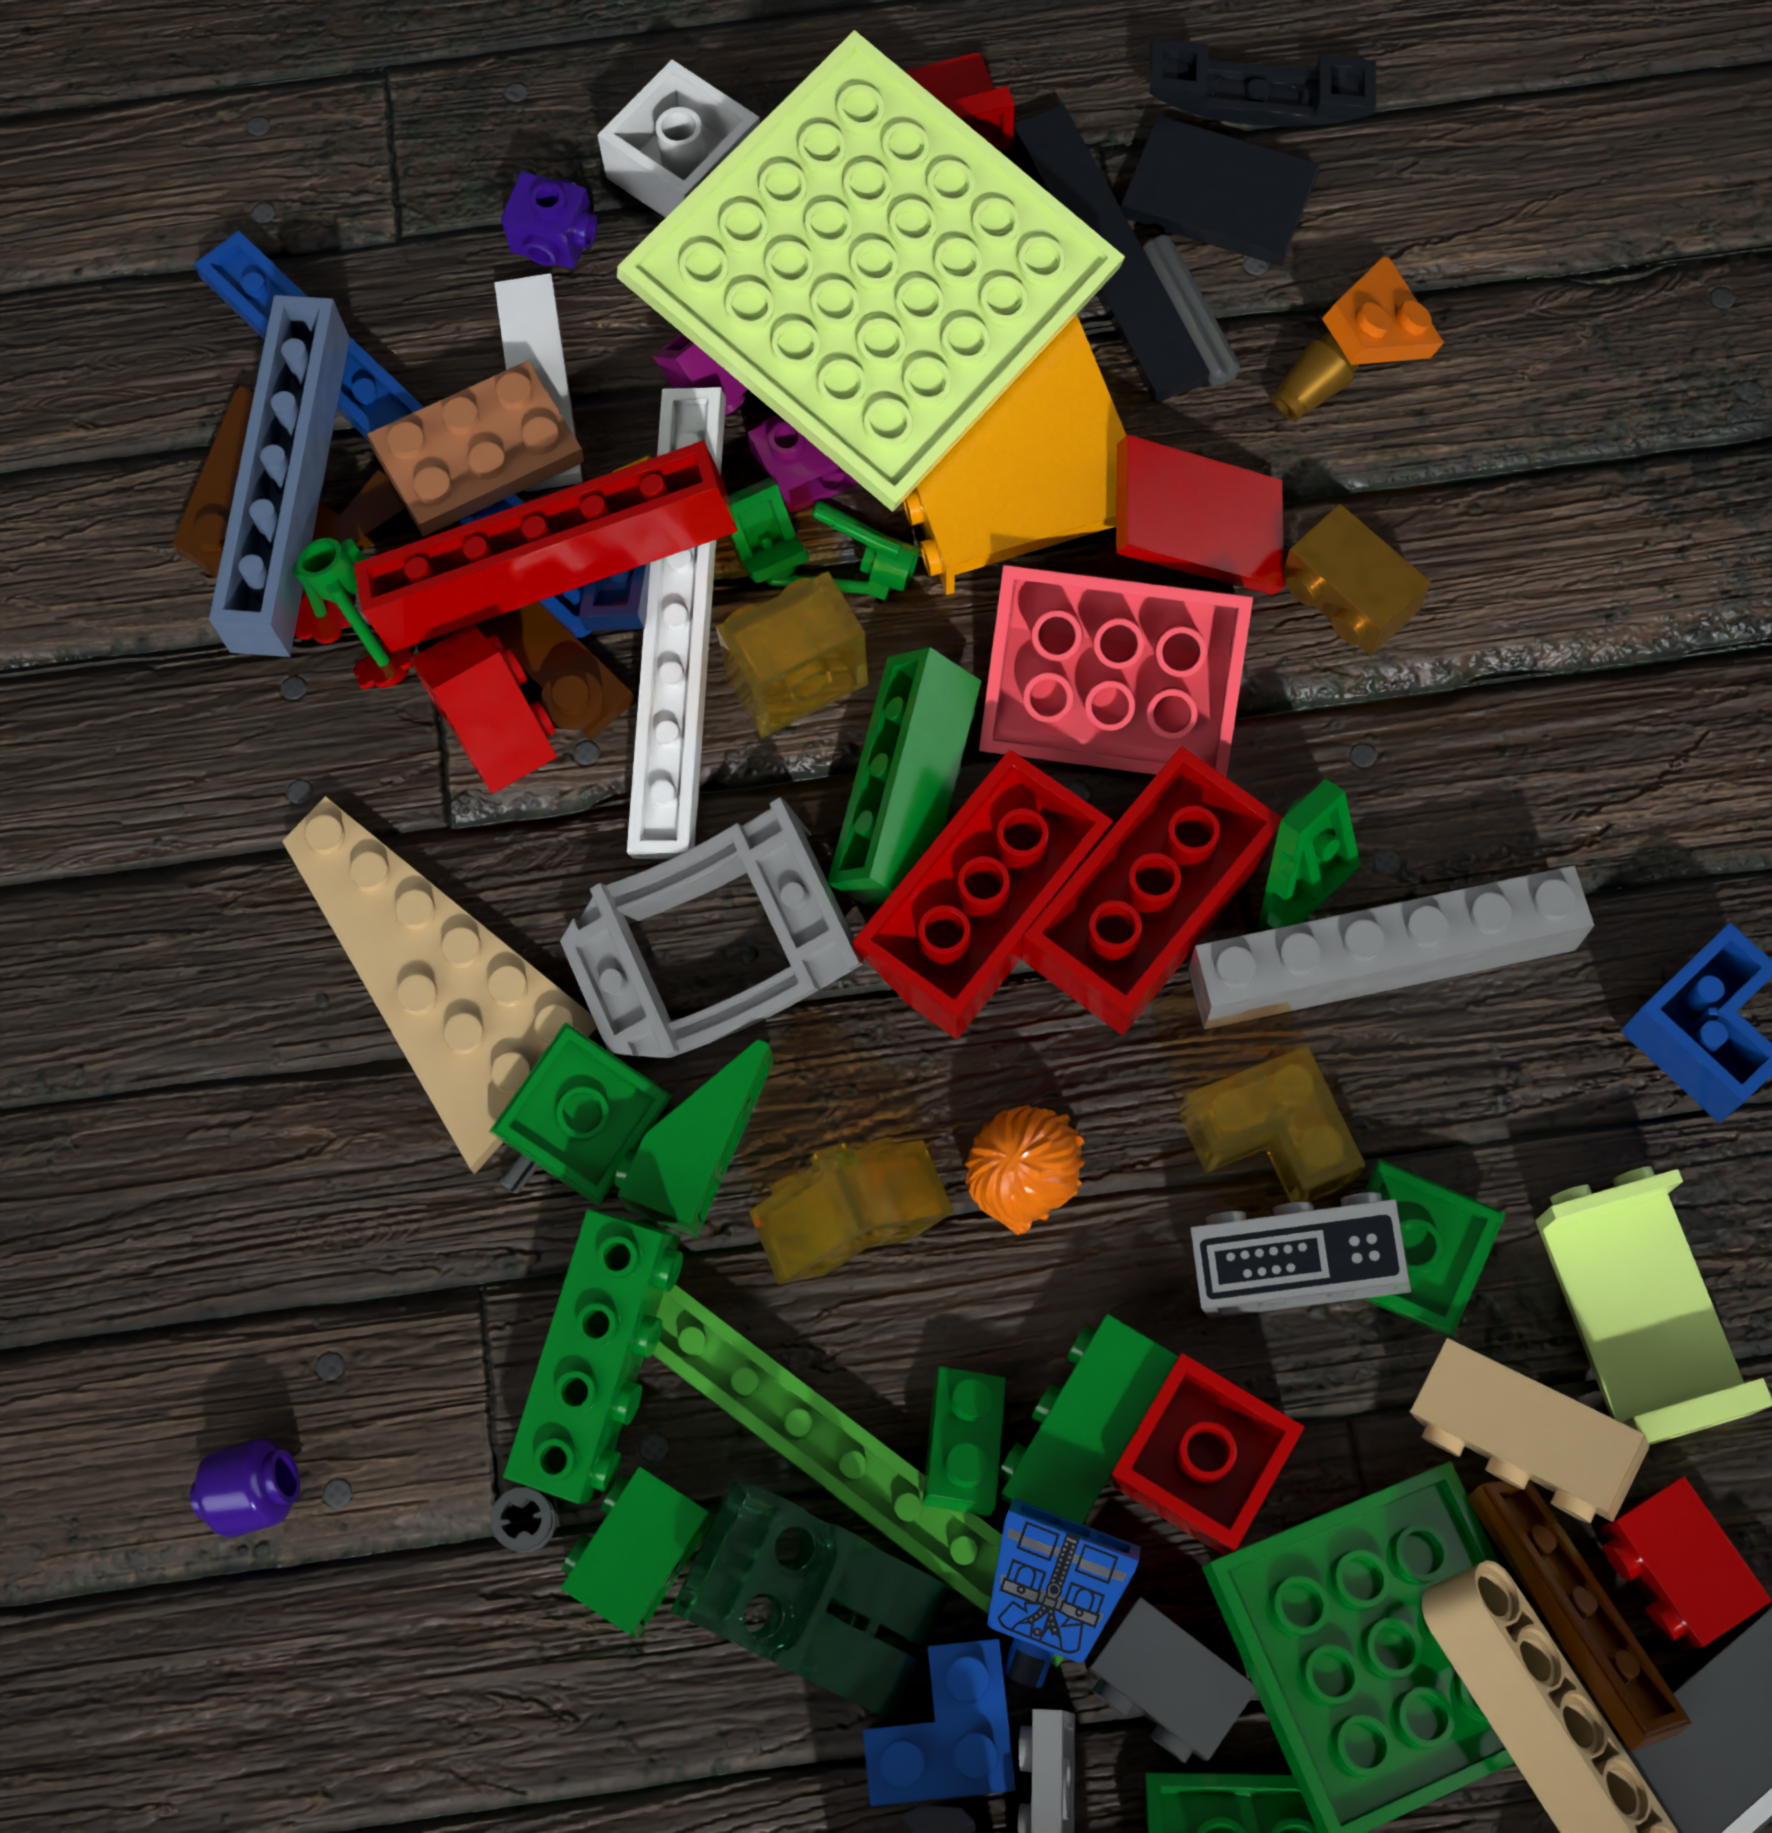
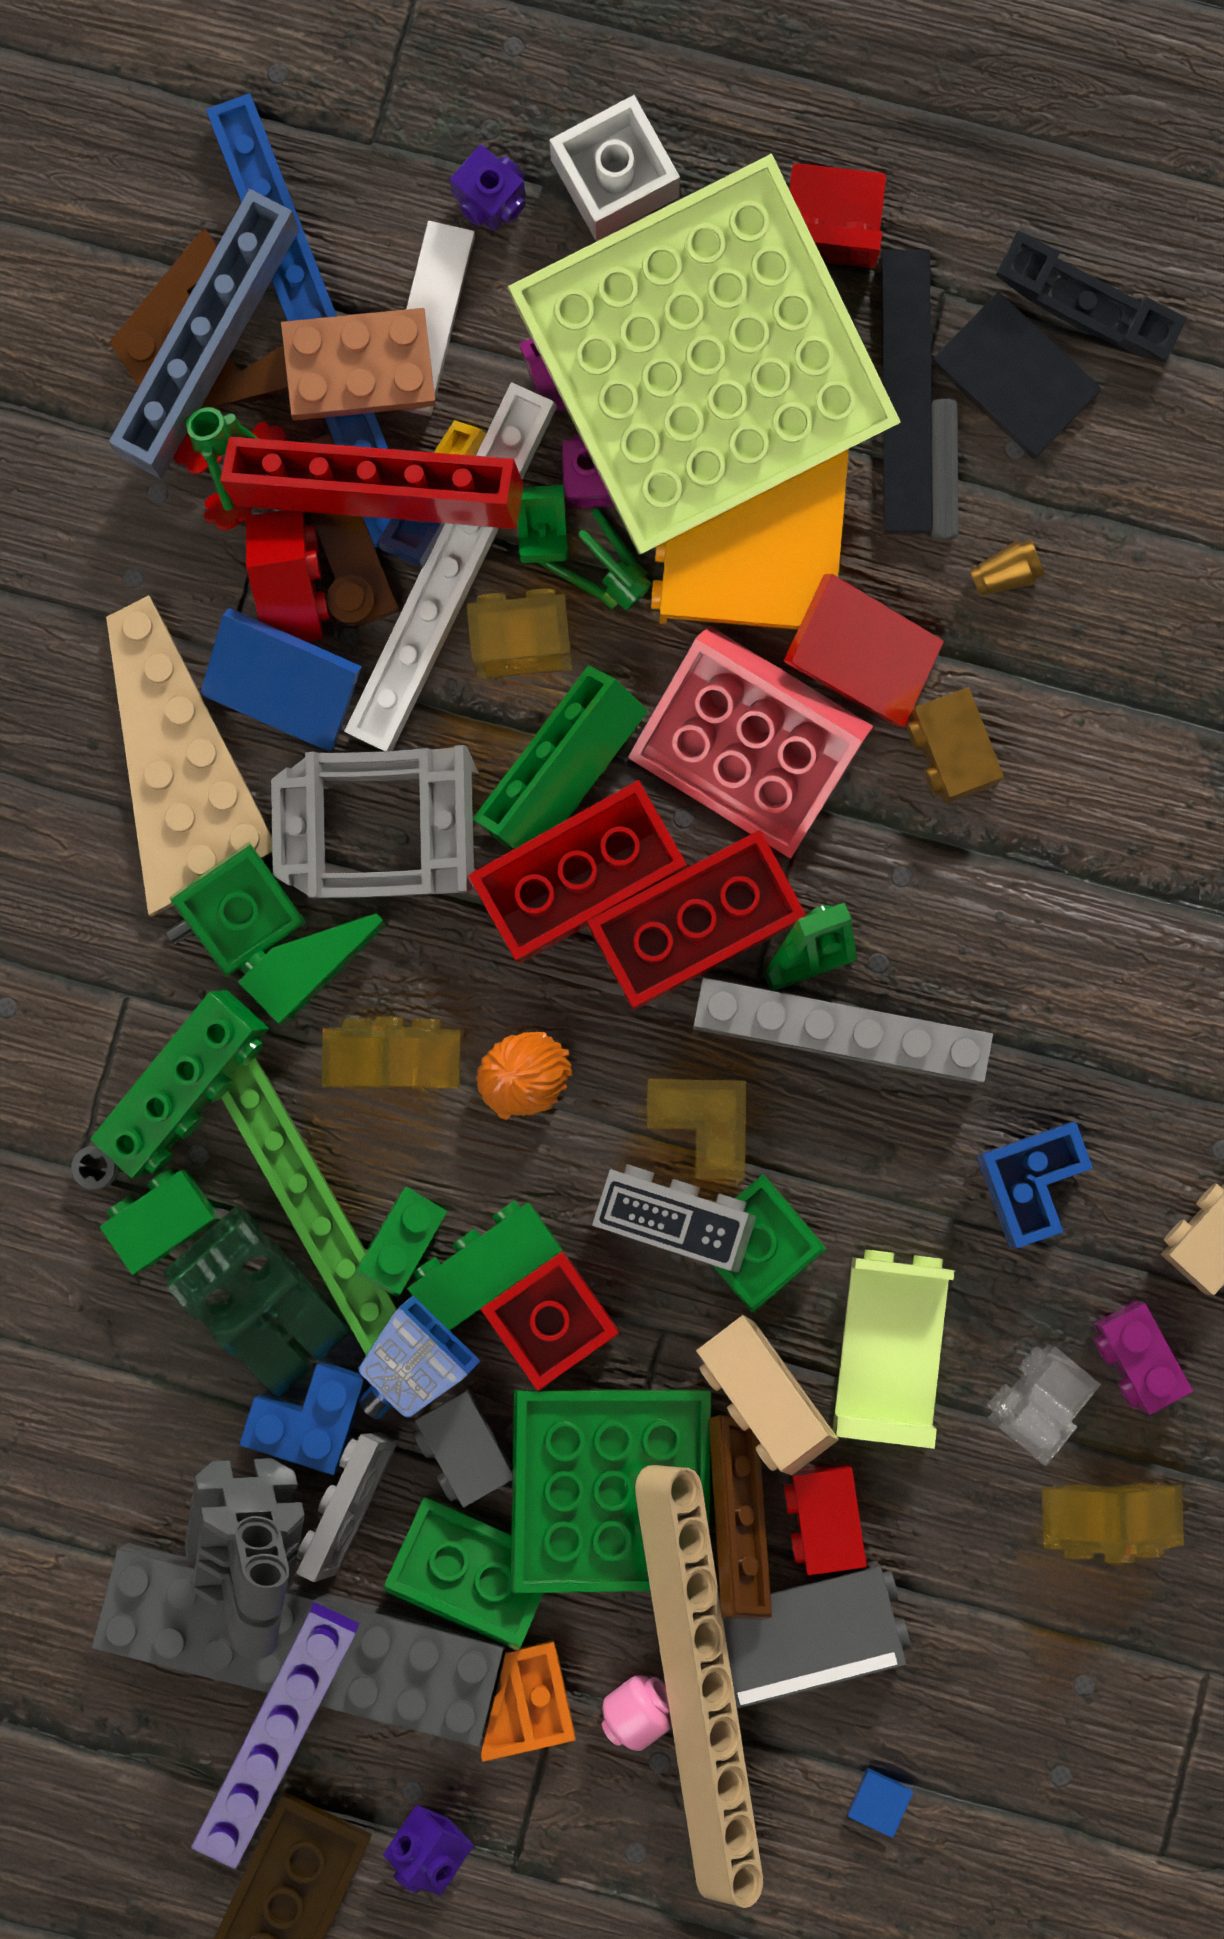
camera: 25 degrees right, 15 degrees up
(523, 821) = (280, 680): none -> blue tile
(1382, 320) = (1079, 544): orange wing -> none

